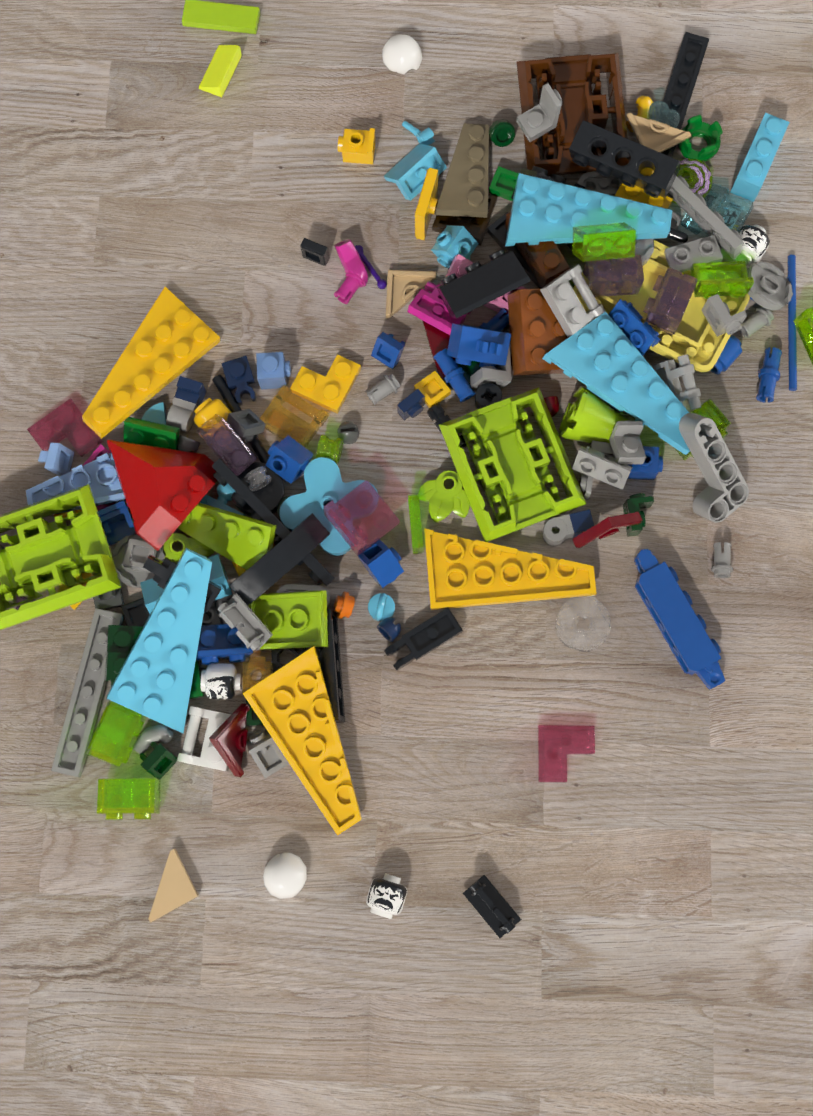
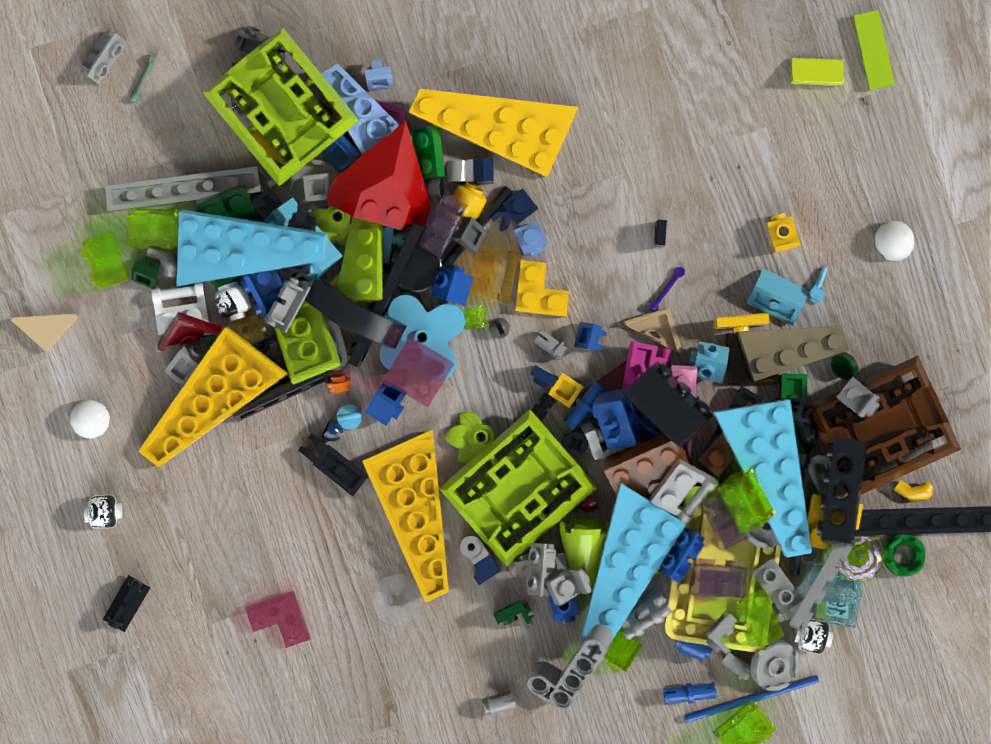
camera: 65 degrees right, 10 degrees up
(65, 423) = (417, 69): clear pink plate -> none
(156, 414) = (451, 148): medium azure tile -> none
(257, 478) = (421, 265): clear bush -> none
(354, 268) = (657, 276): dark pink arm -> none
(415, 524) = (433, 420): clear neon green tile -> none
(606, 528) = (485, 593): dark red tile -> none
(656, 134) = (885, 512): tan tile -> none
(660, 112) = (910, 513): clear light blue tile -> none
(677, 620) = (428, 681): blue hinge -> none
(759, 157) = (904, 617): medium azure brick -> none

